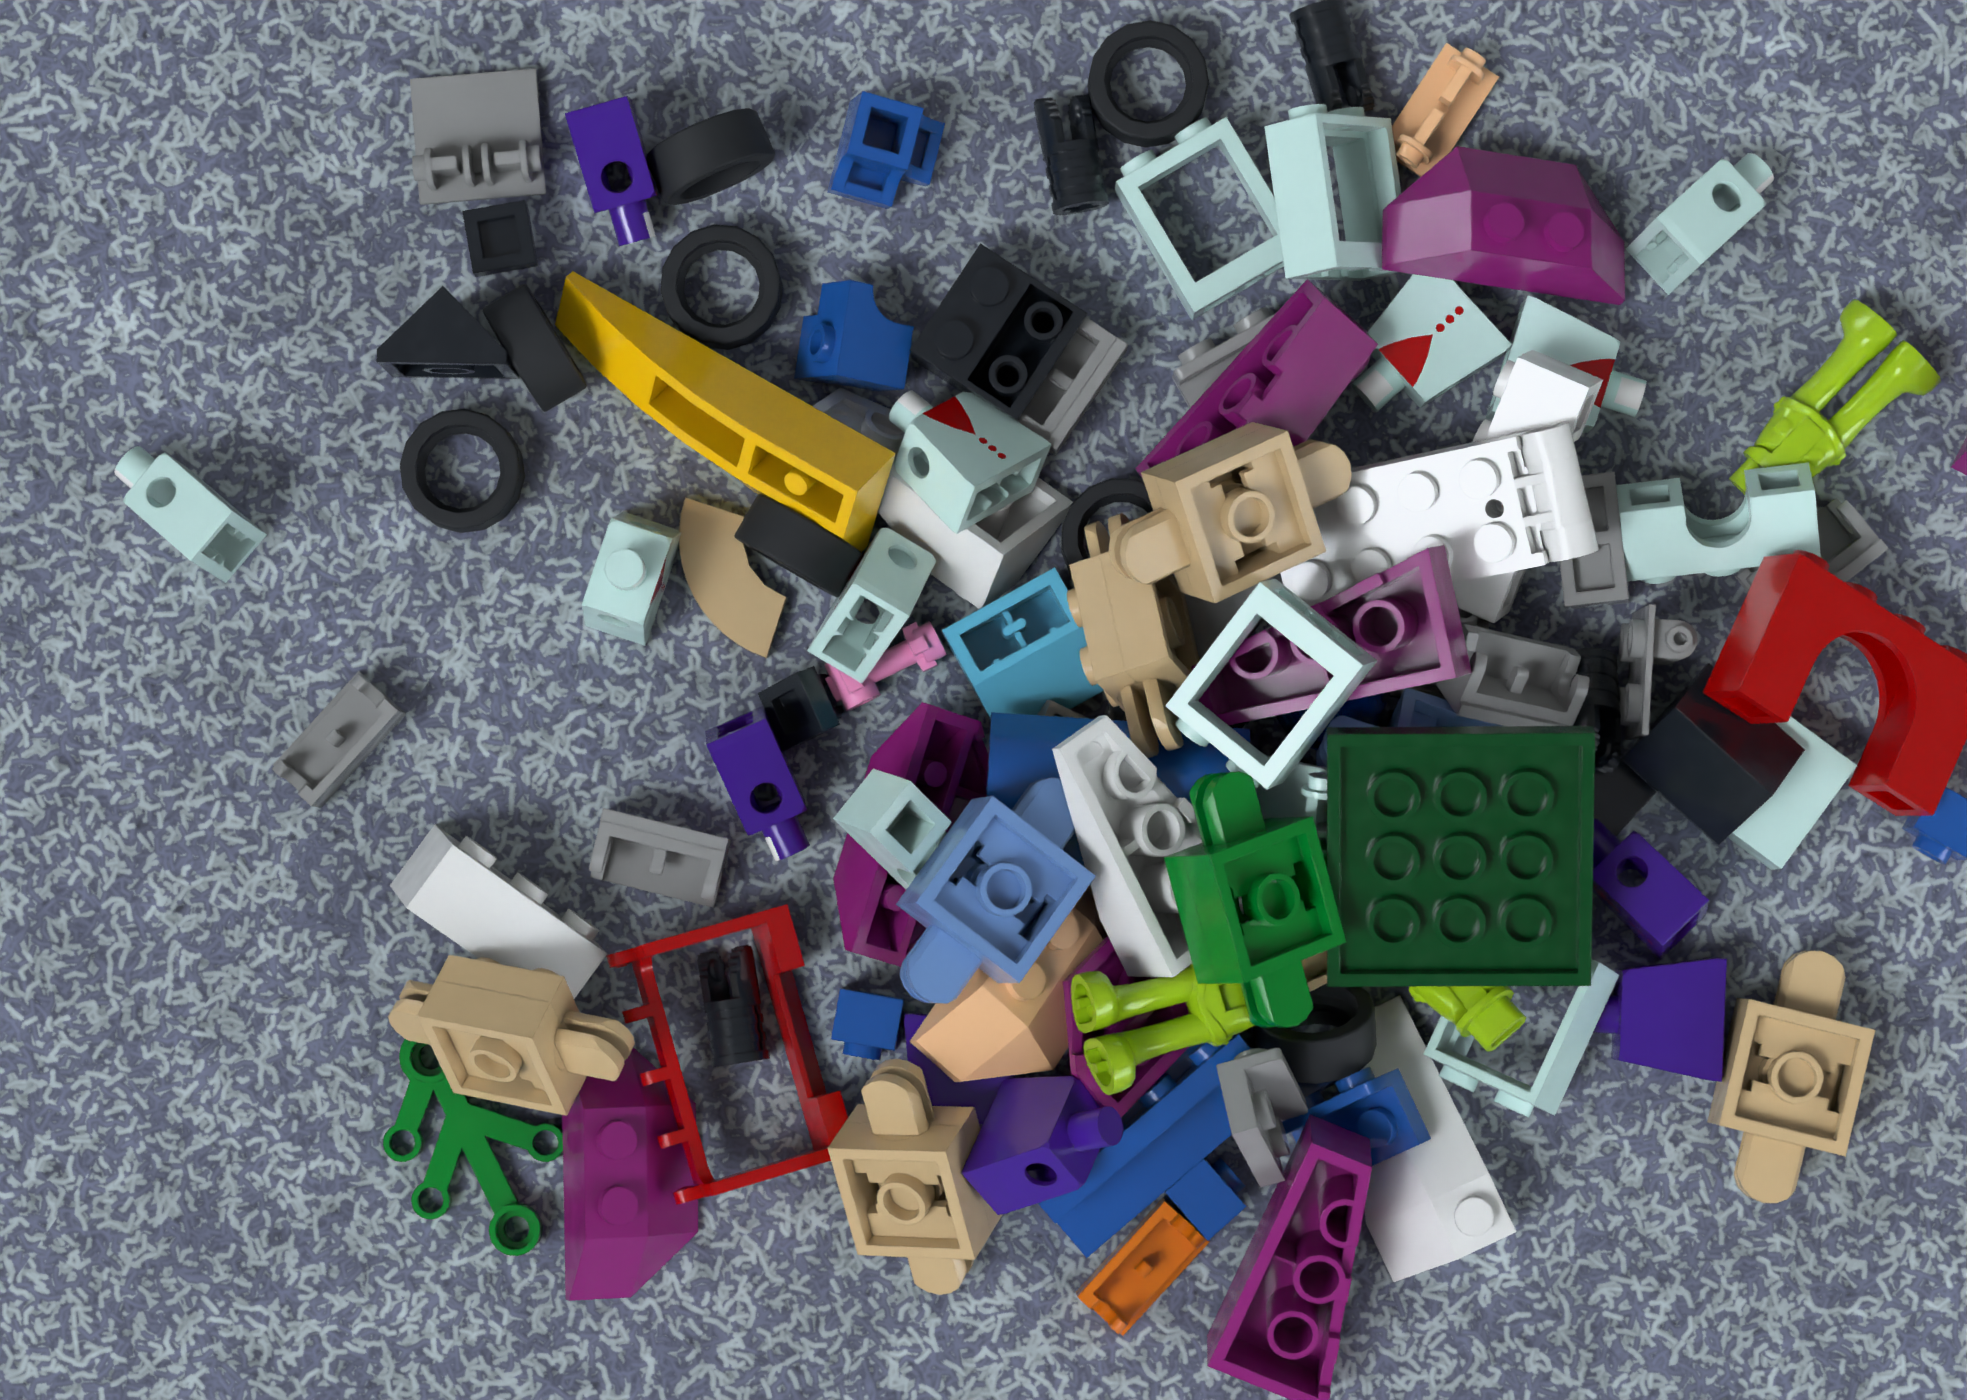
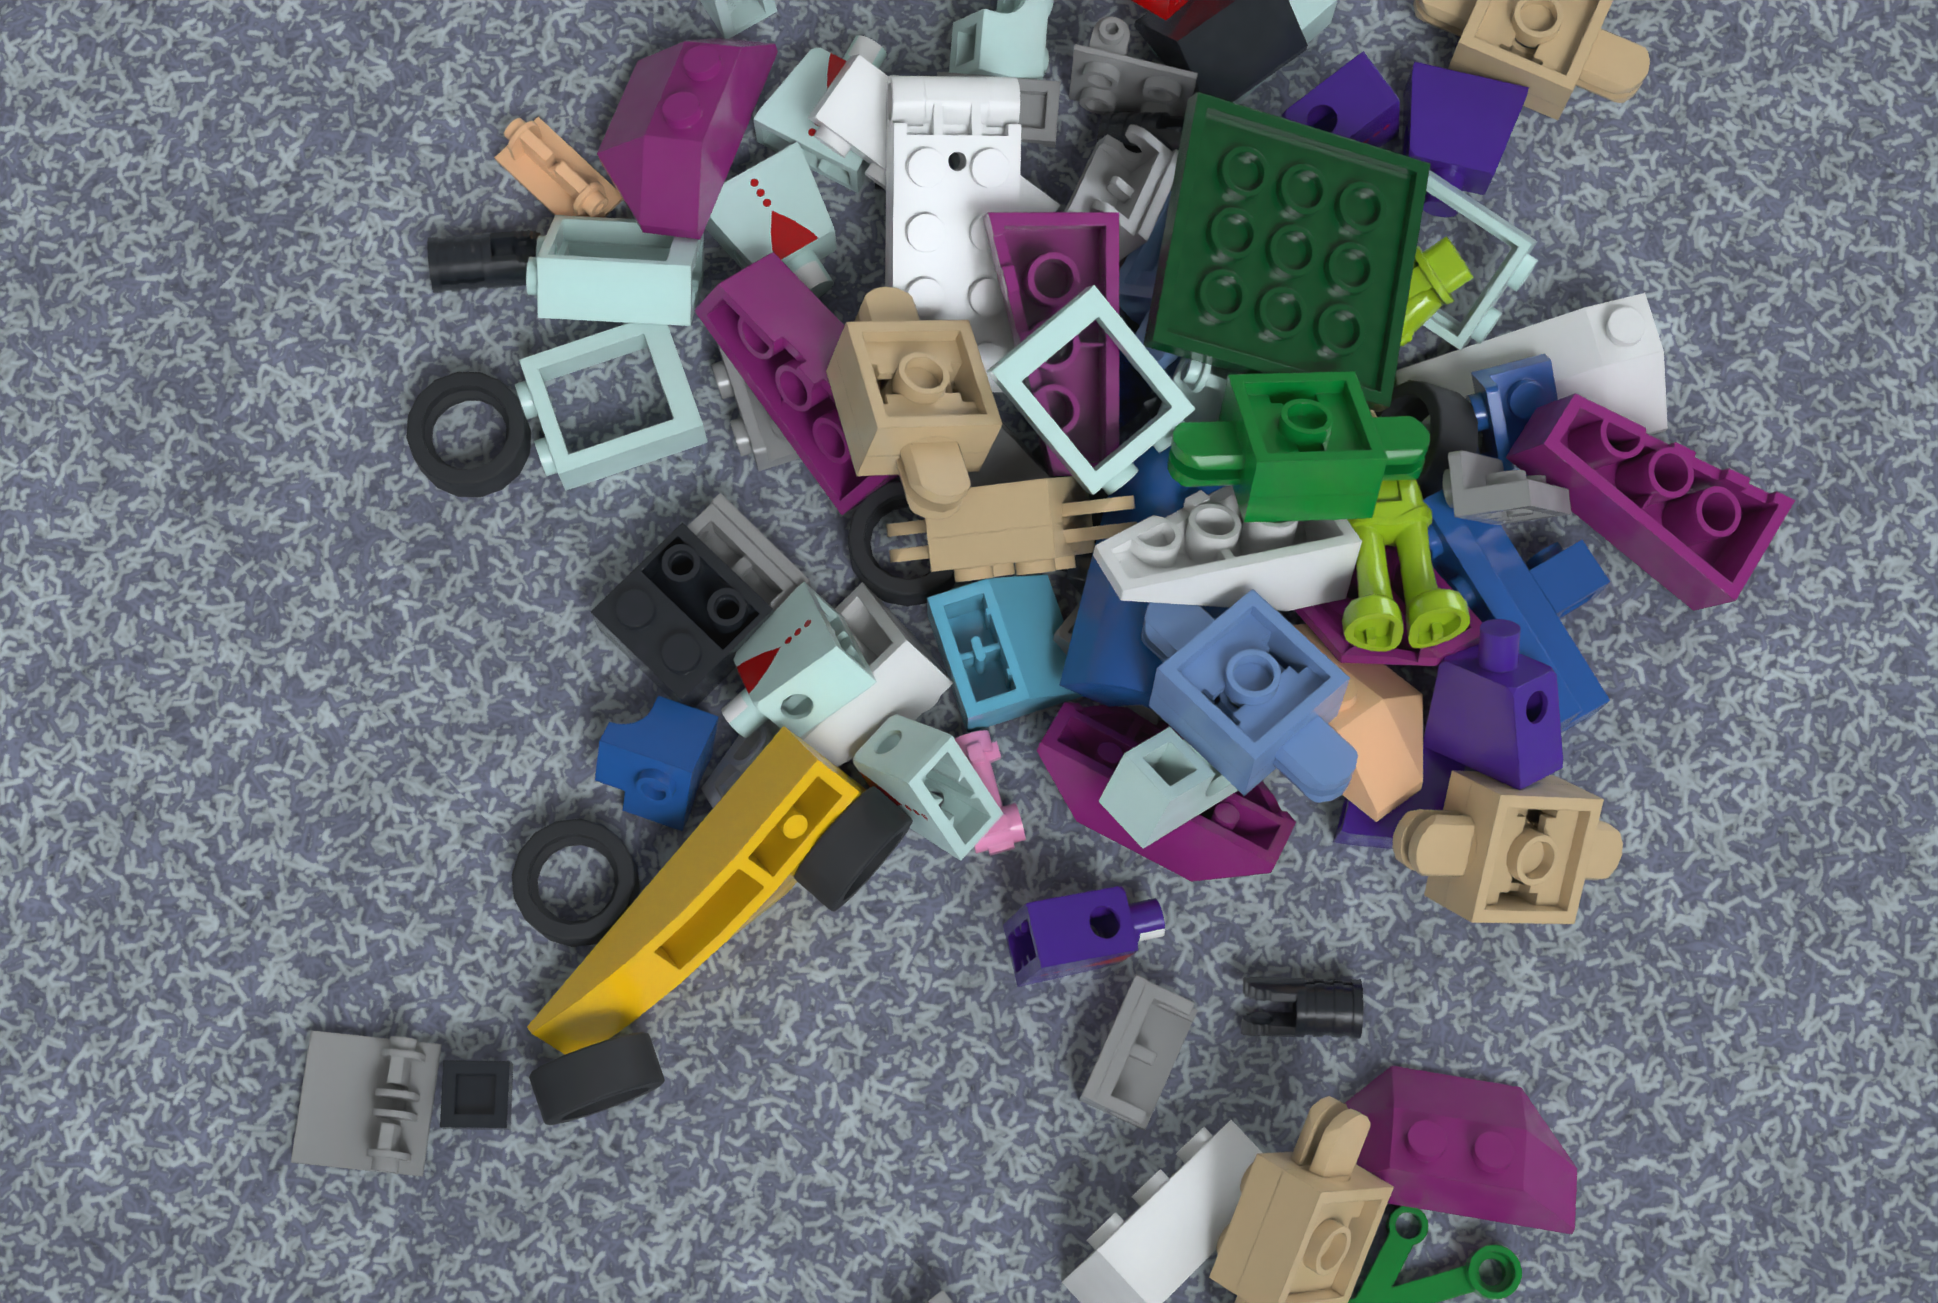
camera: 85 degrees left, 10 degrees down
(423, 442) = (656, 1178): black tyre -> none
(444, 343) = (574, 1163): black slope -> none
(608, 135) = (398, 965): dark purple torso -> none
(630, 577) = (852, 1026): light aqua torso -> none
(710, 156) = (442, 864): black tyre -> none
(723, 579) = (868, 938): tan tile -> none
(778, 956) = (1425, 936): red hinge -> none
(800, 708) = (1013, 880): black tile -> none
(867, 1023) = (1340, 875): blue plate -> none
(881, 146) = (472, 697): blue brick -> none
(1072, 164) = (521, 519): black hinge -> none
(1142, 1267) = (1621, 659): orange hinge -> none

